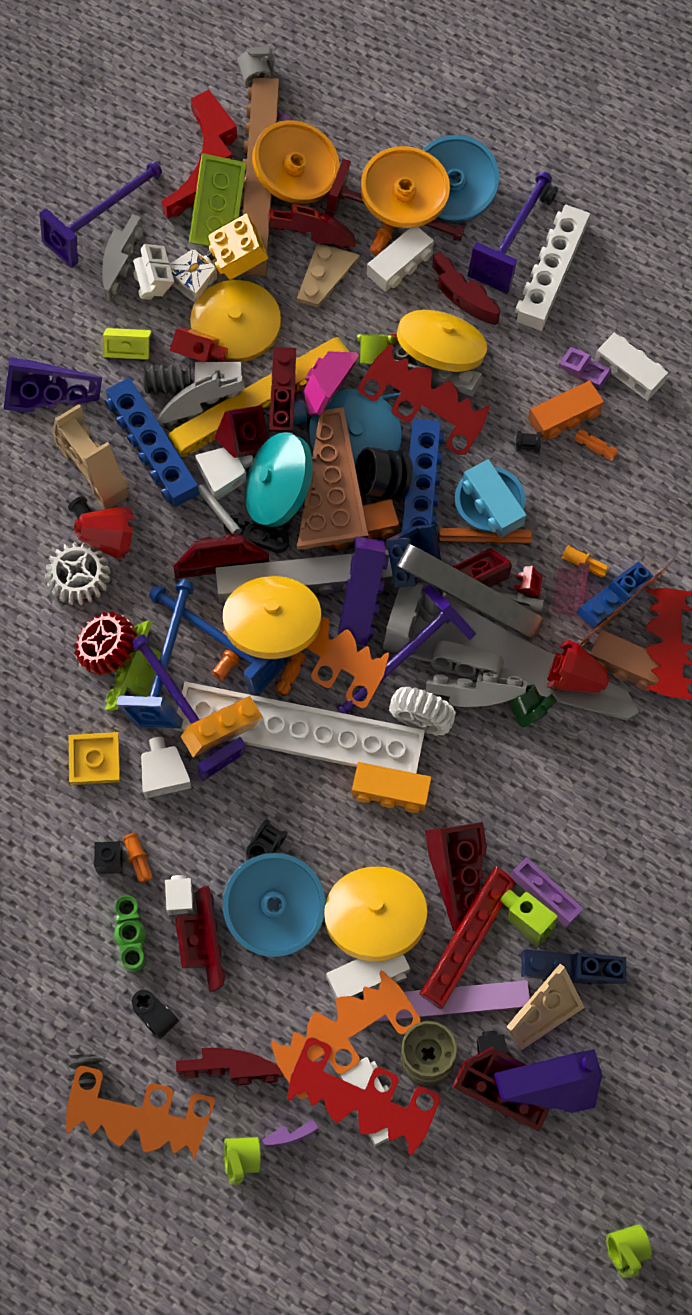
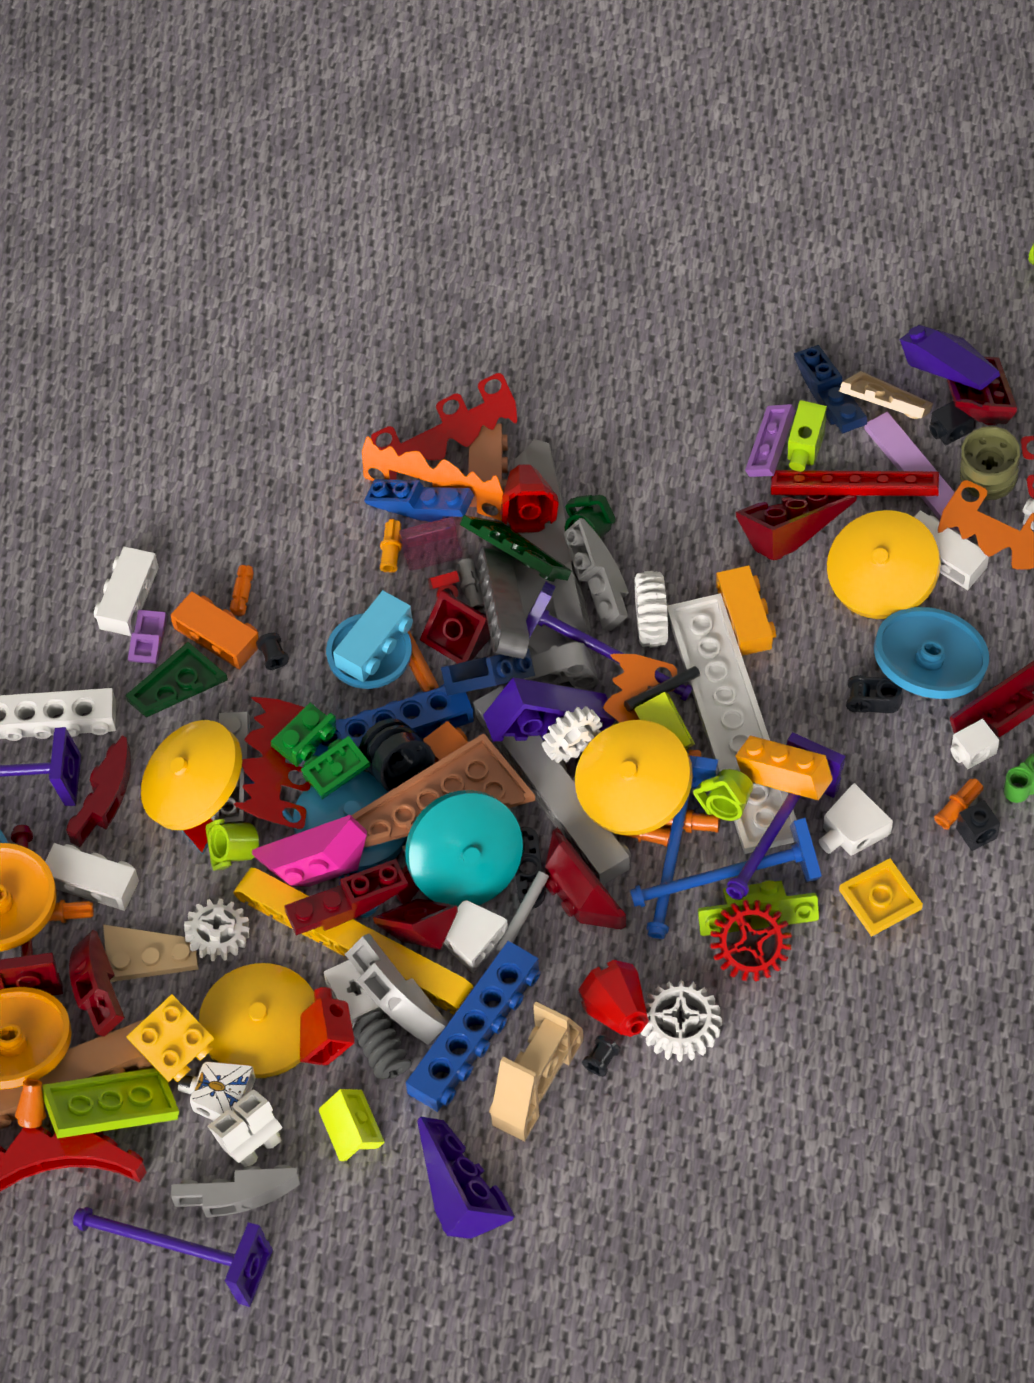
camera: 110 degrees left, 10 degrees down
(226, 681) = (727, 794): none -> lime piece
(238, 153) = (31, 1106): none -> orange cone
(310, 308) = (216, 929): none -> white gear
(313, 673) = (664, 712): none -> neon yellow panel
(331, 591) = (571, 734): none -> white gear
(346, 684) = (665, 686): none -> black bar
(392, 426) = (334, 767): none -> green bracket
(435, 421) = (304, 734): none -> green bracket
(529, 638) = (517, 546): none -> dark green wing
(536, 370) = (175, 680): none -> dark green wing

